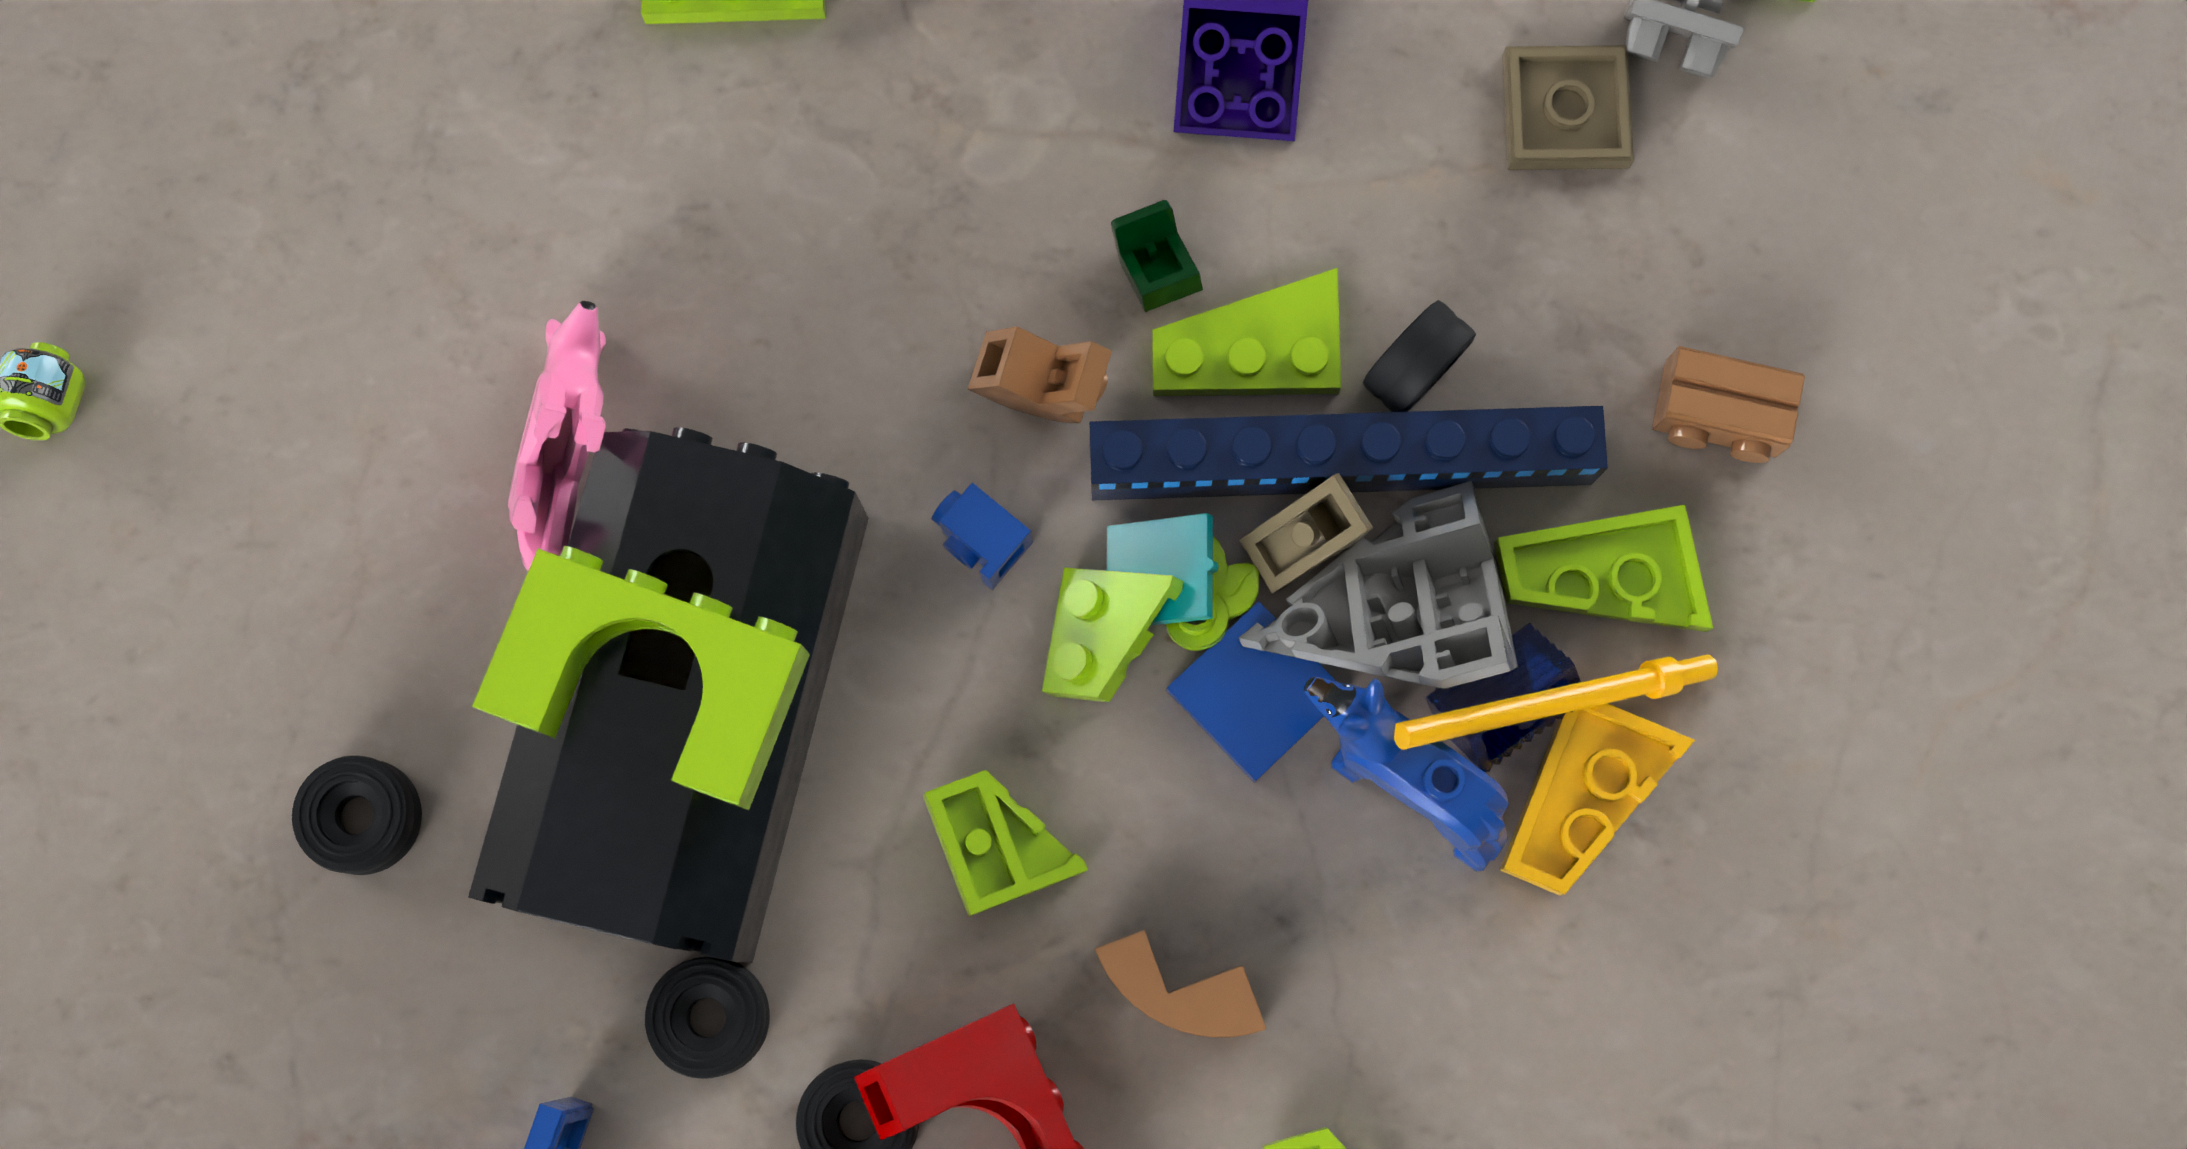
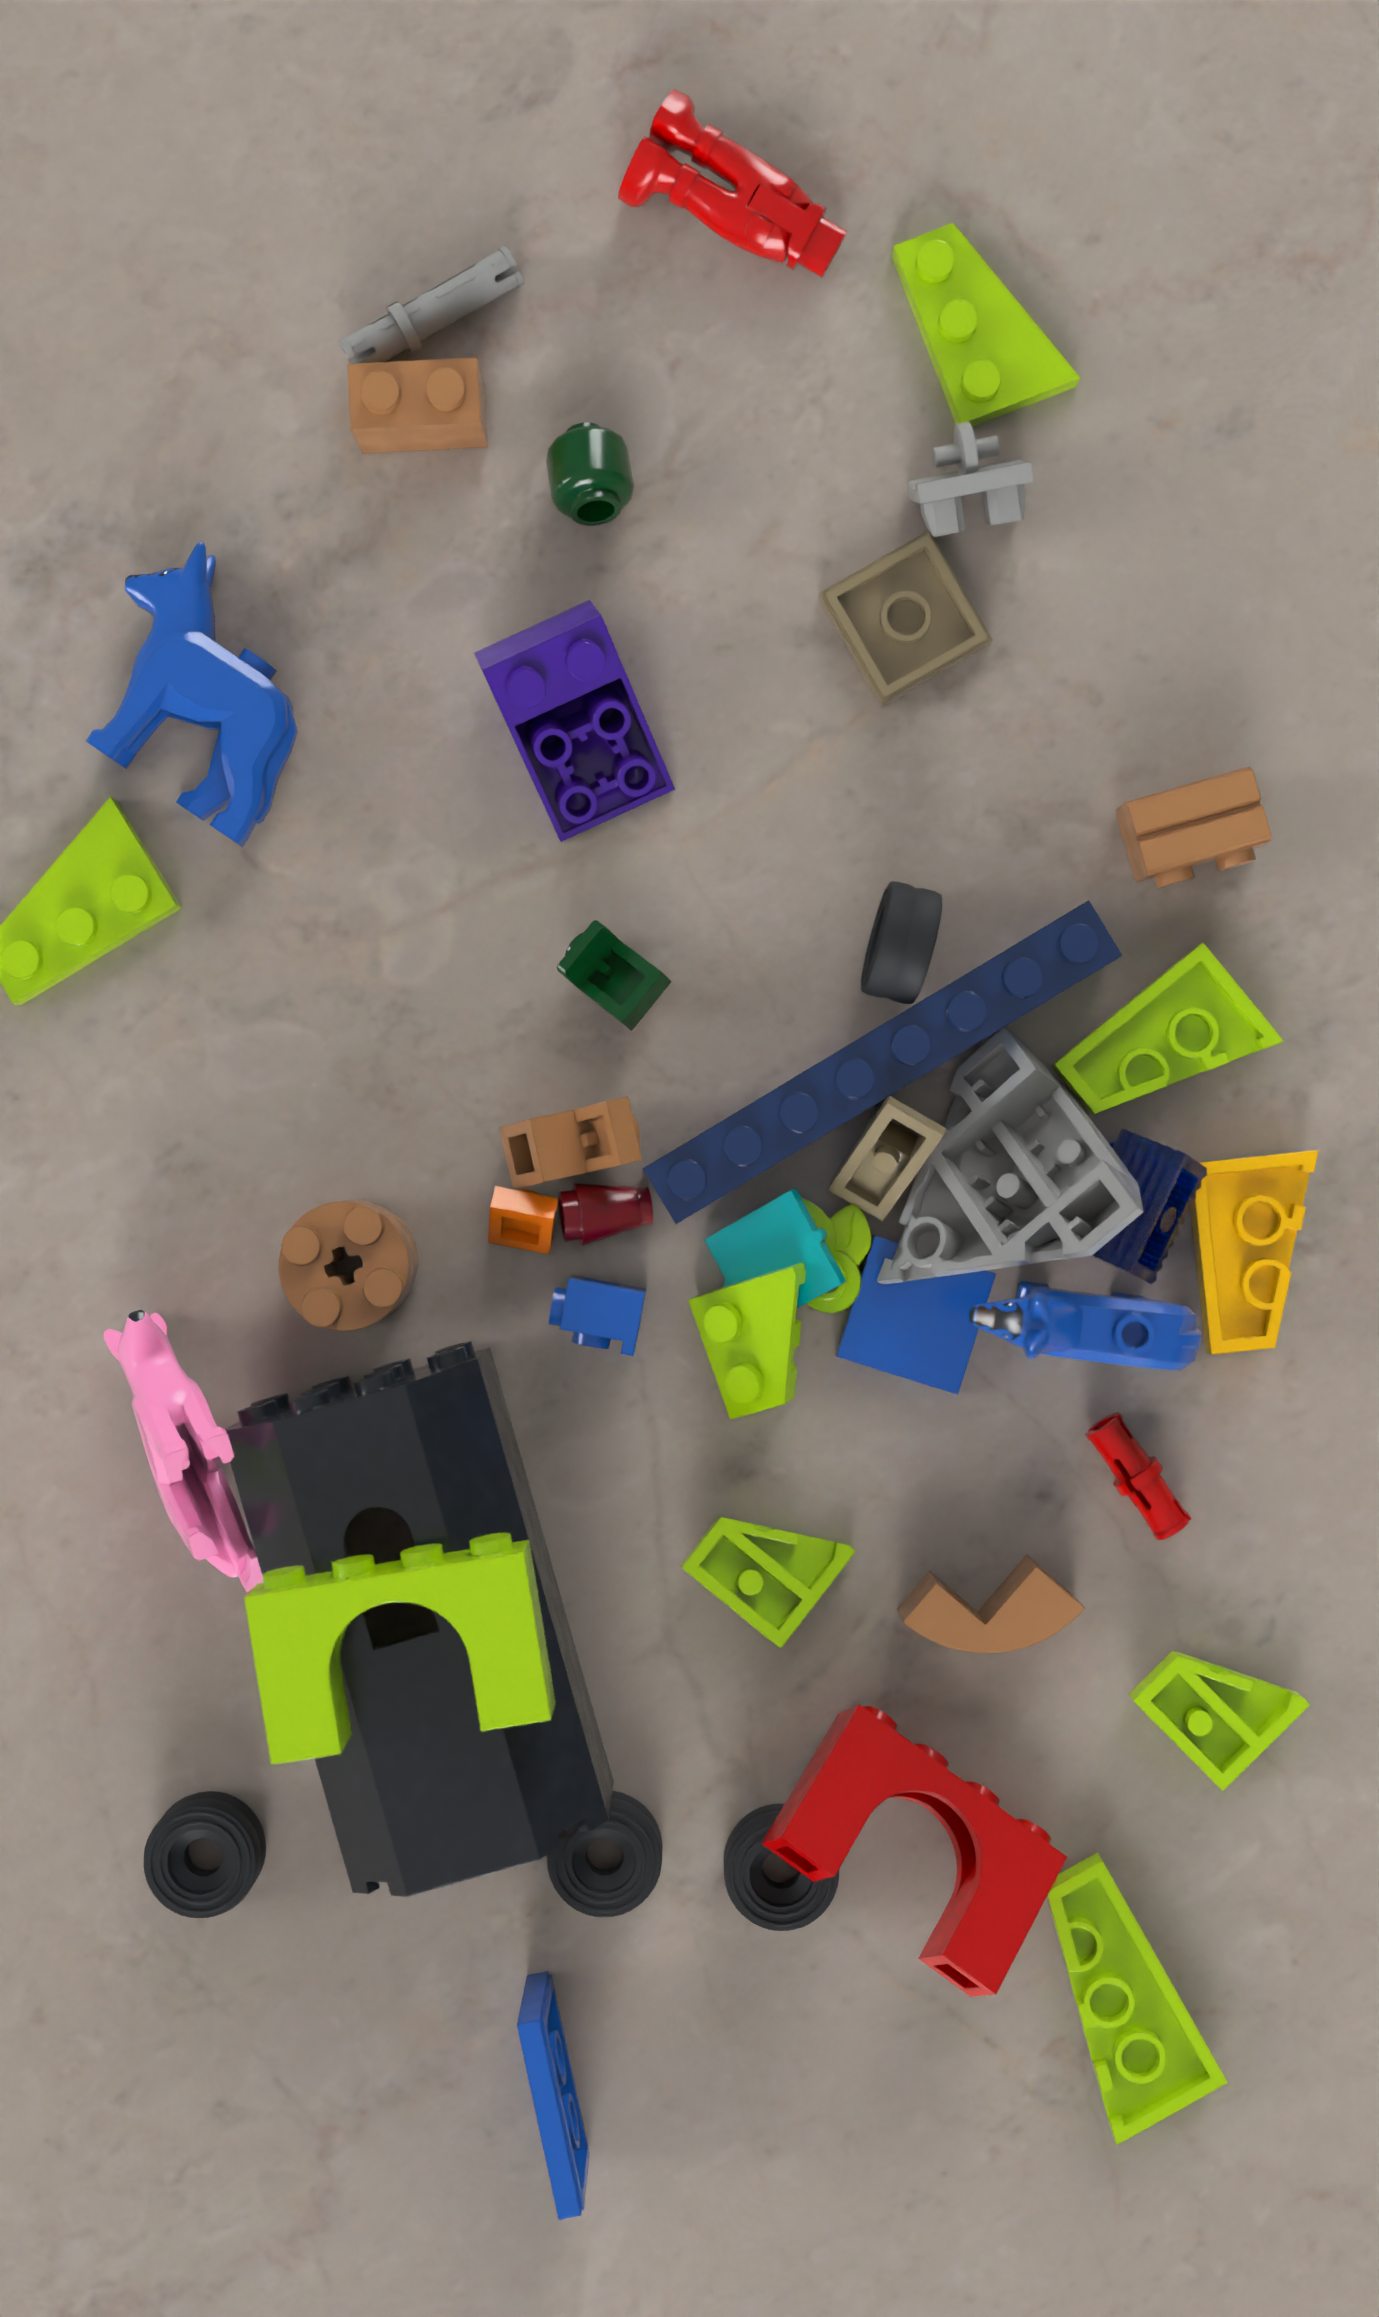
camera: 30 degrees left, 10 degrees up
(772, 342) = (316, 1245): none -> medium nougat brick
(960, 418) = (522, 1219): none -> orange plate
(1033, 450) = (602, 1211): none -> dark red cone
(1255, 346) = (745, 1001): lime wing -> none
(1378, 946) = (1138, 1476): none -> red pin
(1653, 678) = (1255, 1117): yellow bar -> none

